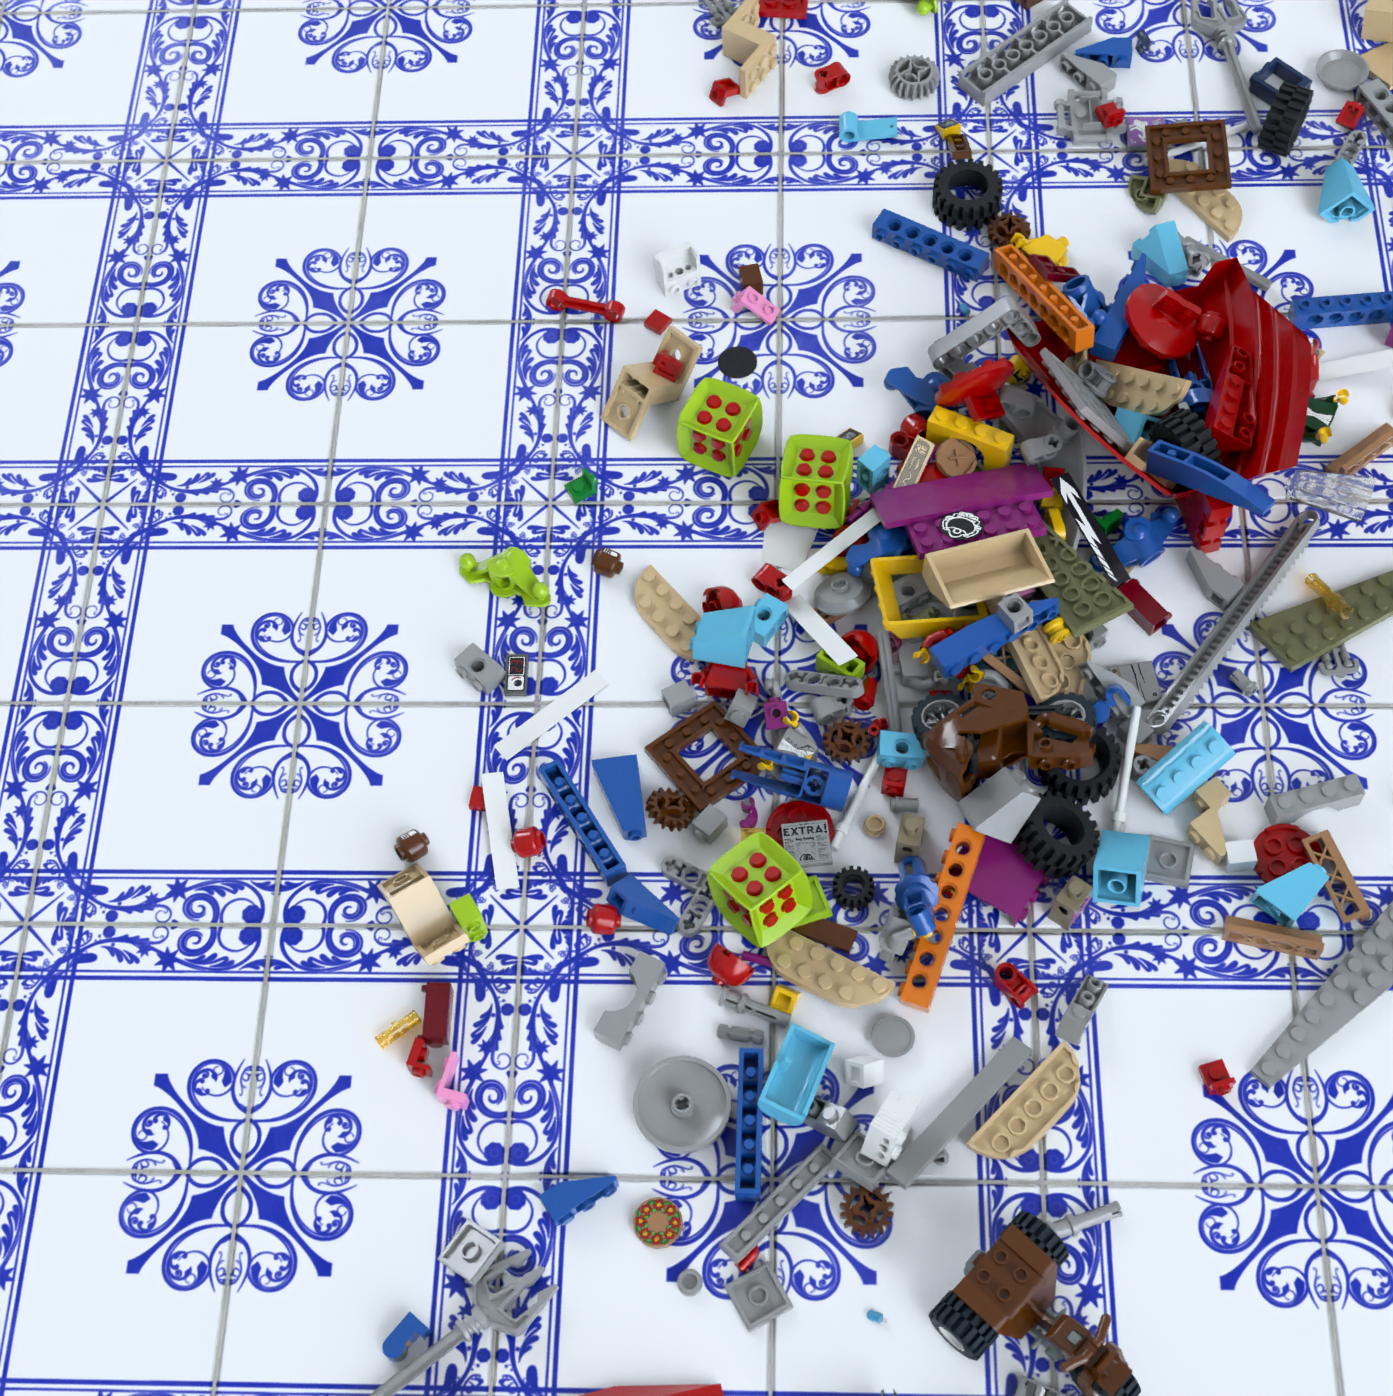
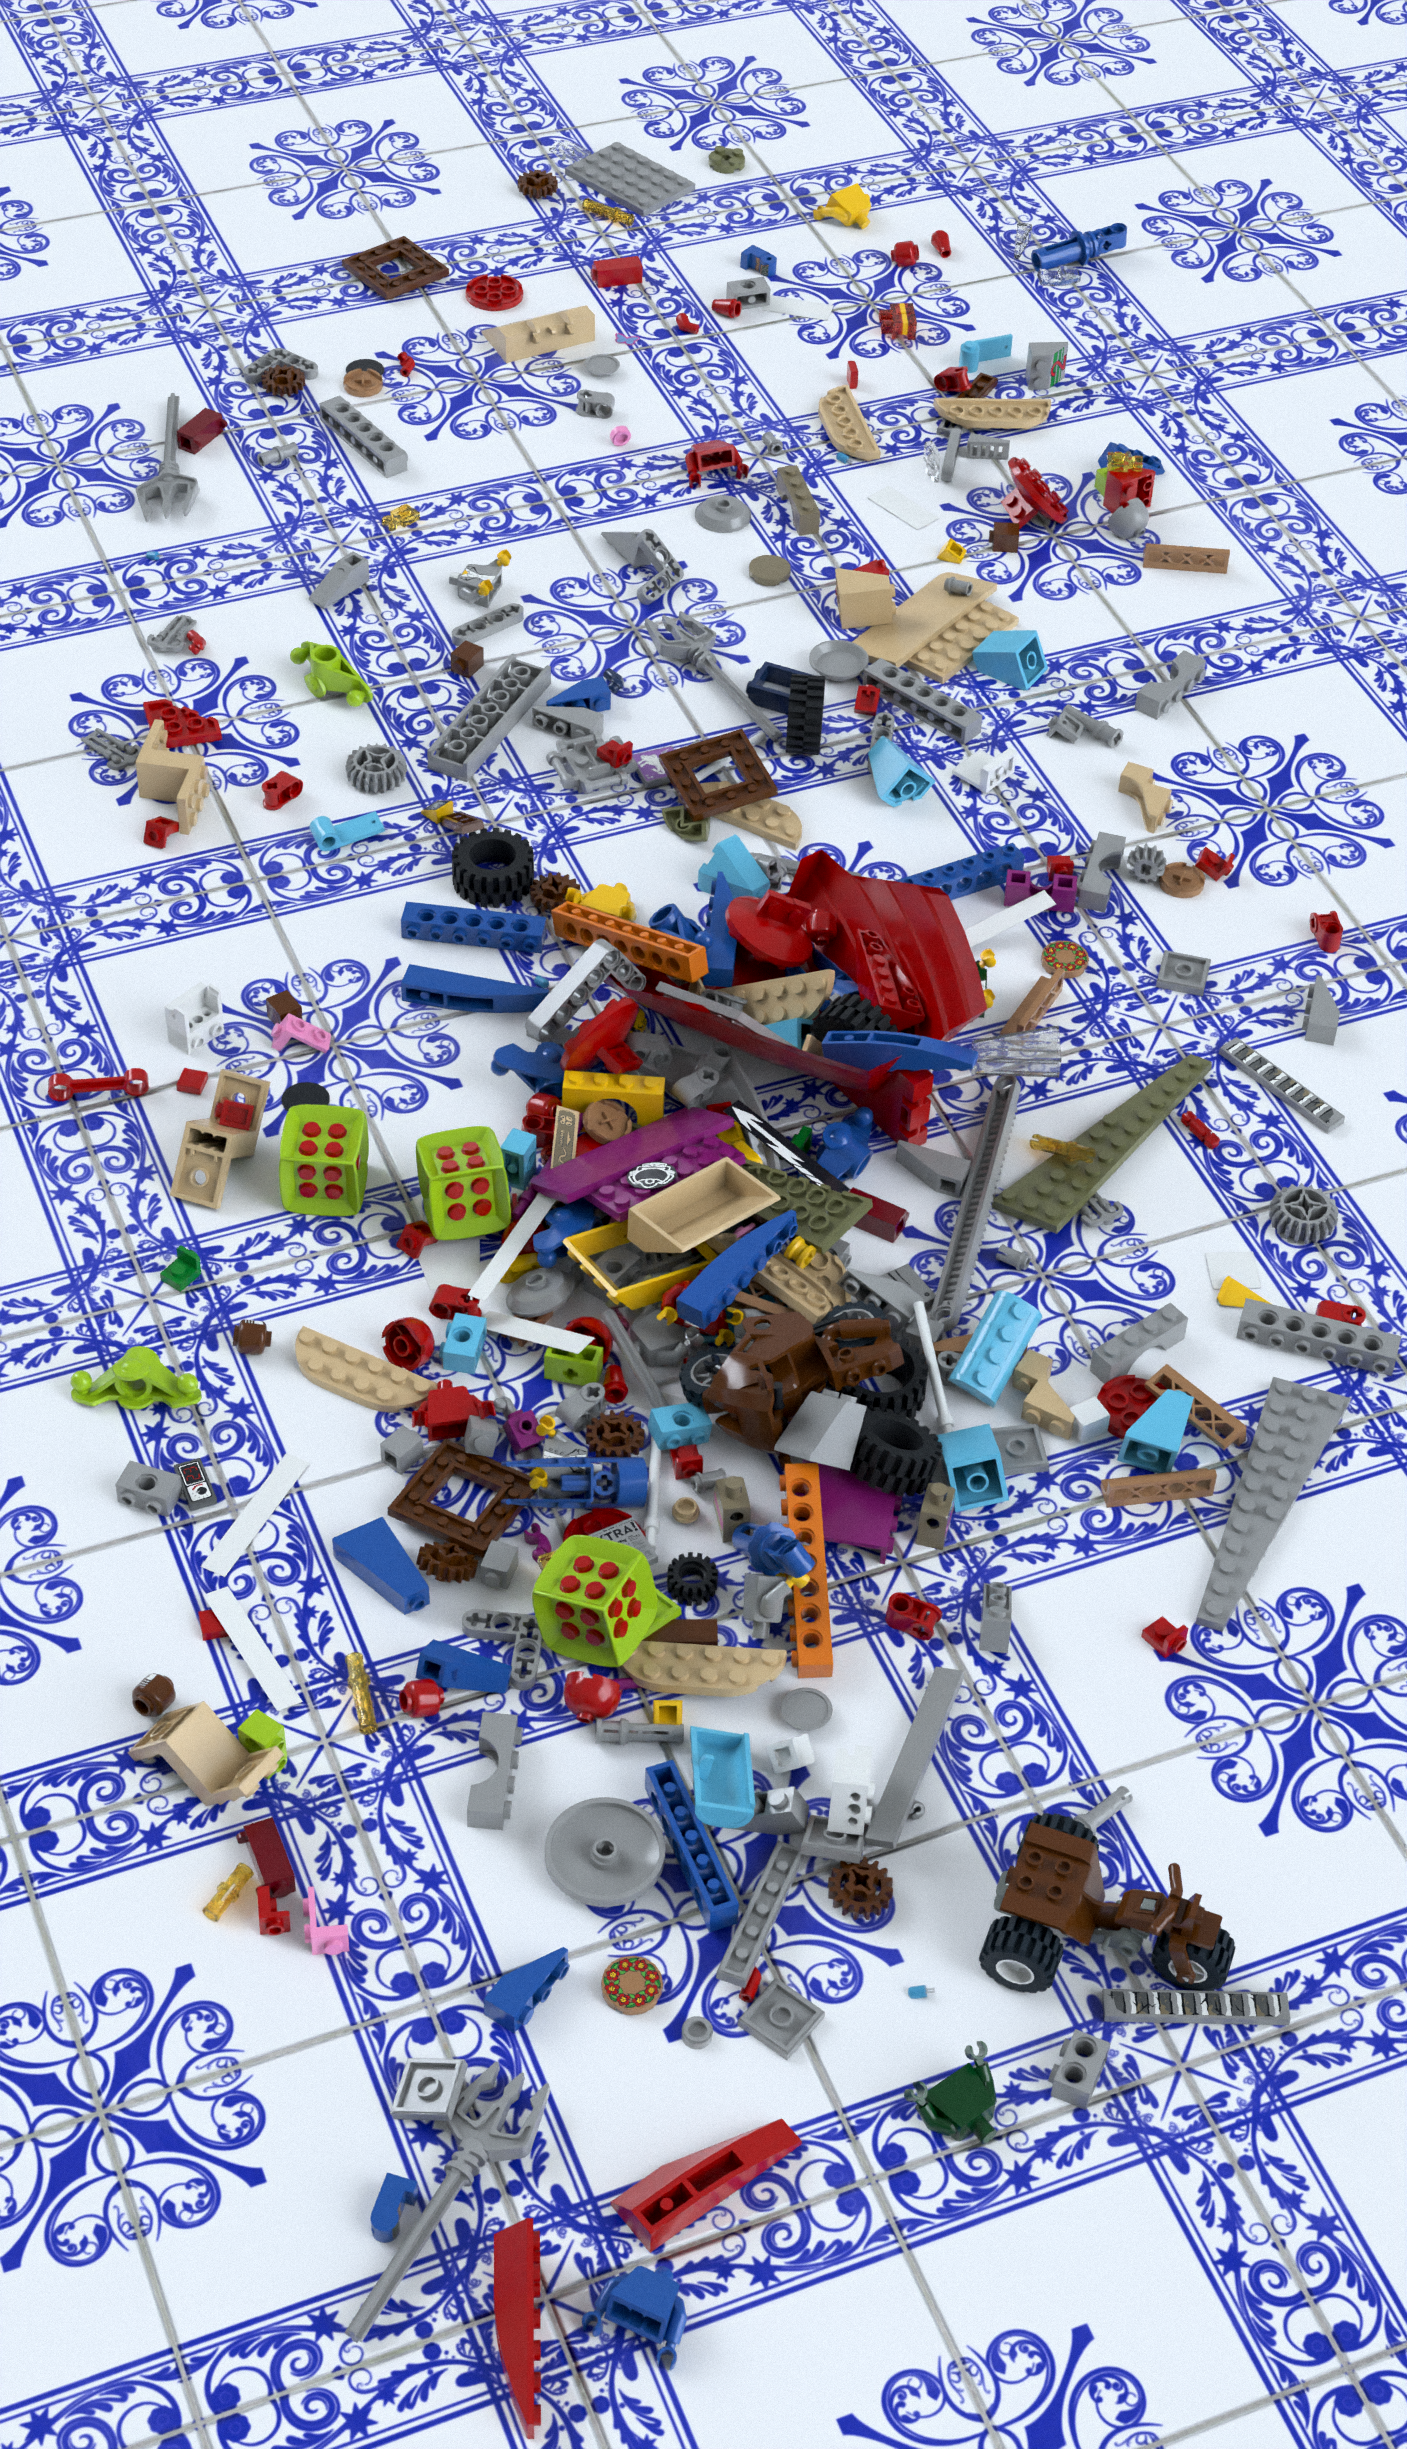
camera: 30 degrees left, 15 degrees down
(528, 842) = (294, 1647): red head -> none
(556, 922) = (359, 1684): none -> clear yellow pin
(583, 822) = (351, 1605): blue brick -> none
(724, 636) = (431, 1364): medium azure slope -> none
(740, 1034) = (632, 1764): light grey axle -> none
(847, 686) = (564, 1384): light grey beam -> none
(876, 726) = (643, 1412): red arm -> none
(900, 303) = (467, 992): none -> blue slope
(1017, 620) = (756, 1234): light grey brick -> none
(1031, 1108) = (987, 1730): tan plate -> none
(1050, 271) = (626, 912): dark red tile -> none
(1103, 706) = (888, 1303): blue leg -> none

